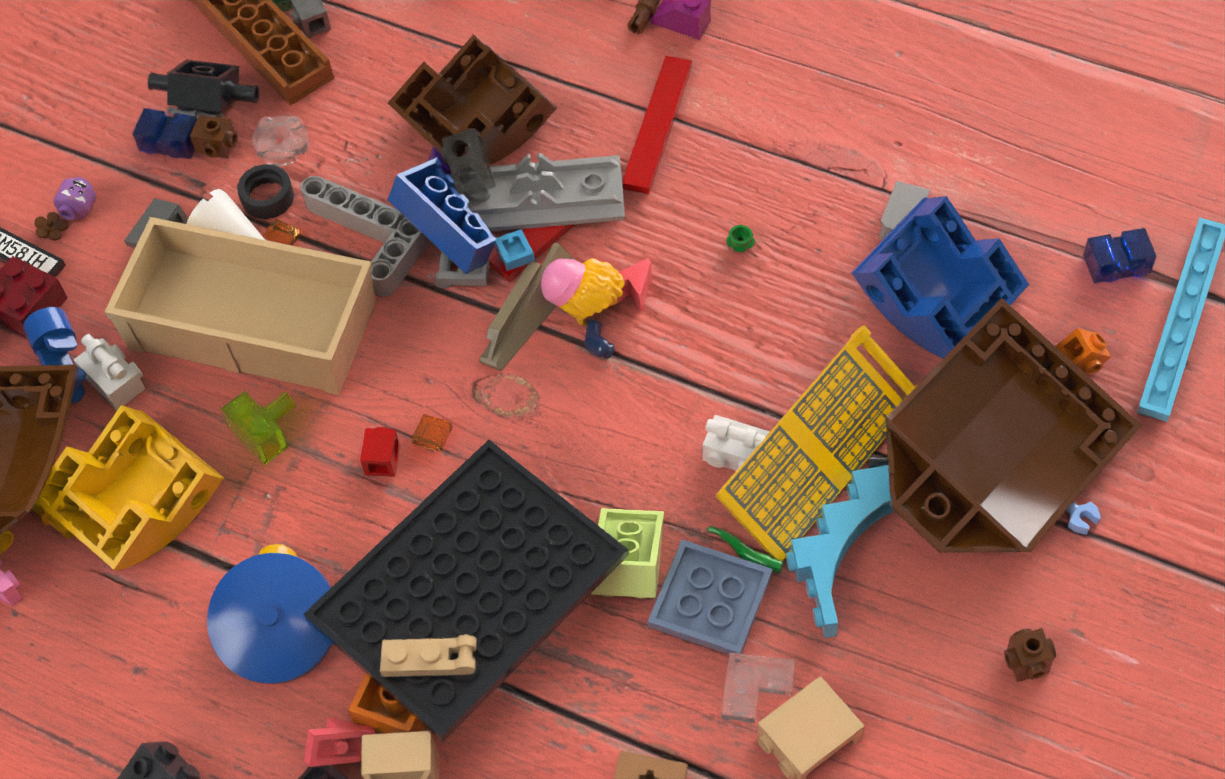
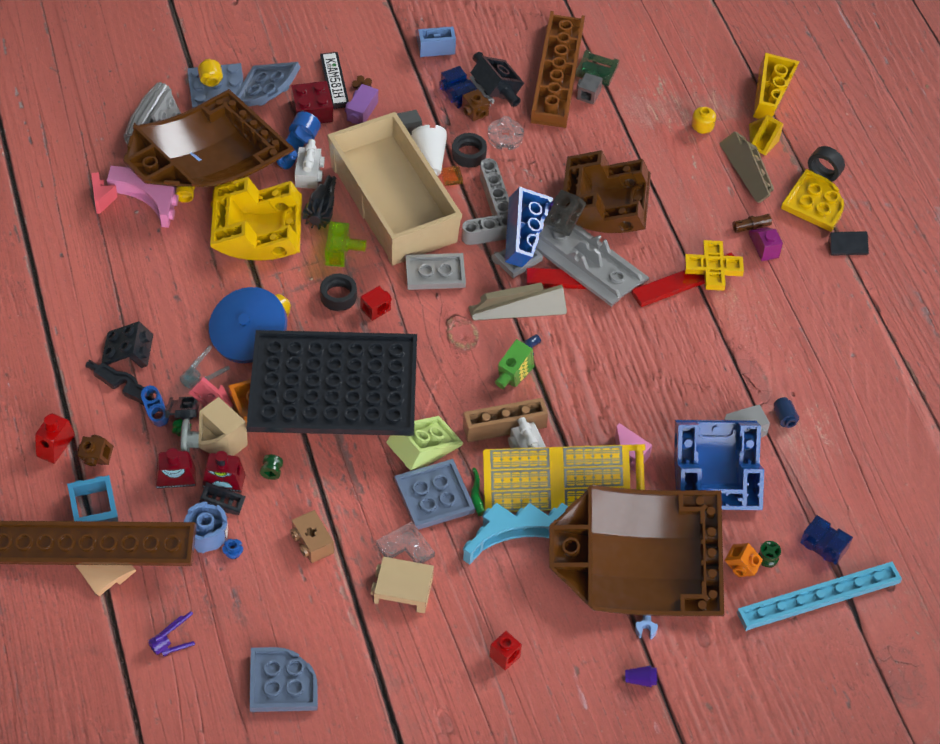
camera: 40 degrees right, 5 degrees down
(74, 198) = (384, 80): medium lavender head -> none
(78, 104) = (436, 41): none -> medium blue slope
(82, 248) = (362, 104): none -> medium lavender brick
(183, 406) = (320, 205): none -> black piece
(278, 745) = (191, 375): none -> clear light blue plant
(317, 460) = (338, 280): none -> black tyre
(398, 355) = (435, 271): none -> light grey plate
(427, 657) = (279, 391): tan plate -> none
(432, 433) = (408, 317): clear orange tile -> none
(504, 752) = (271, 467): none -> dark green wheel
(514, 250) = (538, 270): dark azure bracket -> none
(581, 287) = (547, 313): yellow hair -> none
(616, 374) = (515, 365): none -> bright green torso
(637, 282) = (577, 335): coral slope -> none
(671, 82) = (714, 265): none -> yellow plate
(680, 443) = (499, 420): none -> medium nougat brick
(740, 232) = (654, 360): green plate -> none
(825, 342) = (626, 437): none -> bright pink slope
(922, 166) = (786, 412): none -> dark blue brick
(998, 688) = (505, 650): none -> red brick
(1030, 654) = (537, 651): reddish brown brick -> none
(1094, 315) = (770, 548): none -> dark green wheel
(1147, 570) = (642, 676): none -> dark purple cone

